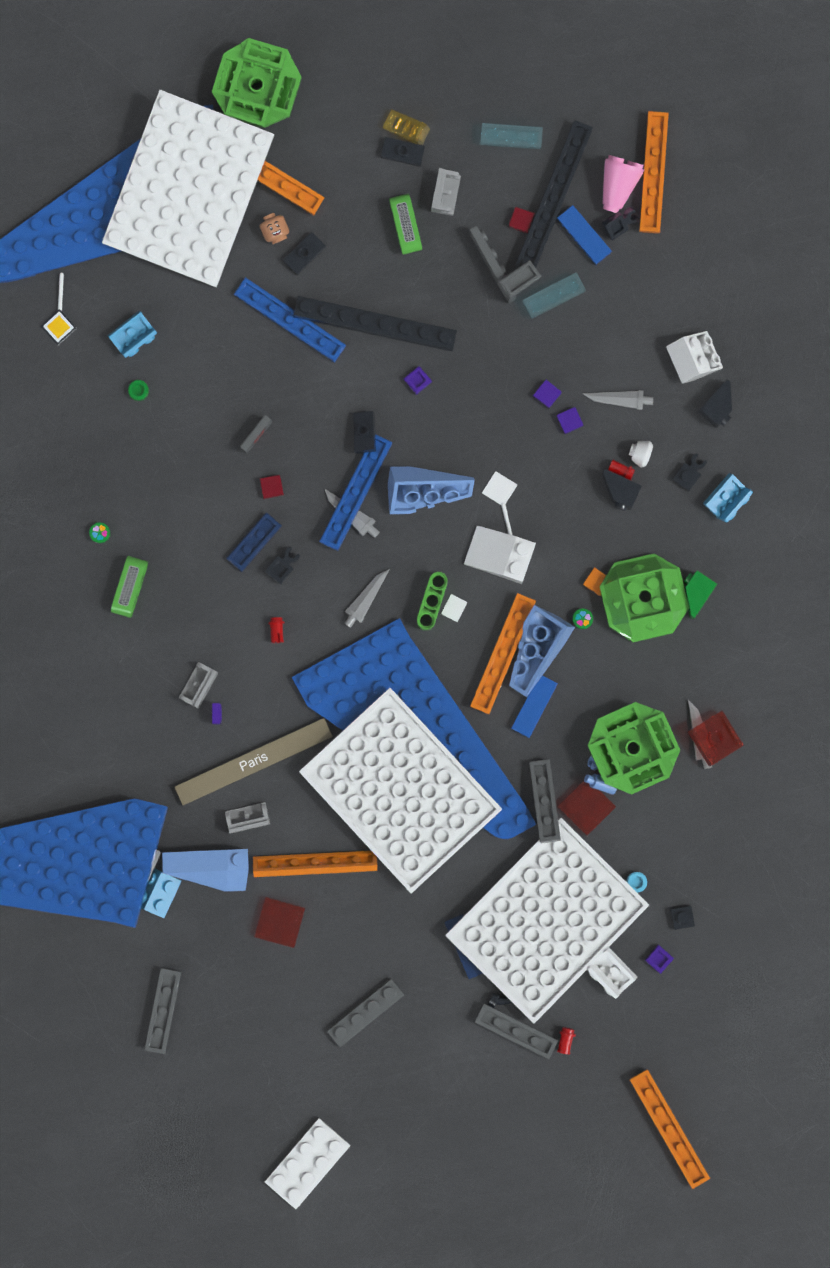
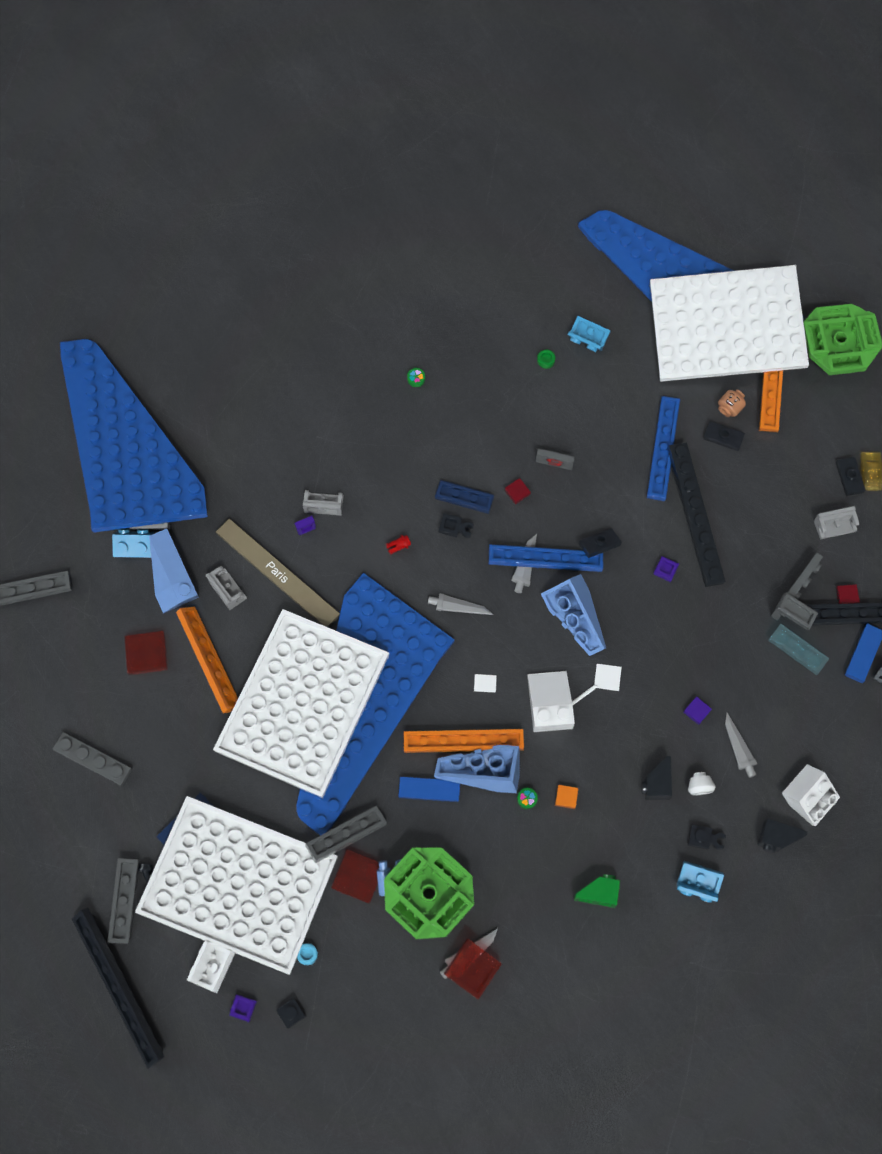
camera: 70 degrees right, 15 degrees down
(59, 325) = (568, 282): piece -> none
(129, 586) = (381, 415): bright green beam -> none
(405, 224) = (792, 502): bright green beam -> none
(425, 609) = (474, 666): bright green beam -> none
(547, 394) = (710, 681): dark purple tile -> none
(566, 1040) = (133, 951): red pin -> none
(592, 1065) = (118, 988): none -> black plate
(622, 470) = (677, 774): red pin -> none
(641, 619) = (566, 865): bright green piece -> none
(669, 1129) = (81, 1091): orange plate -> none

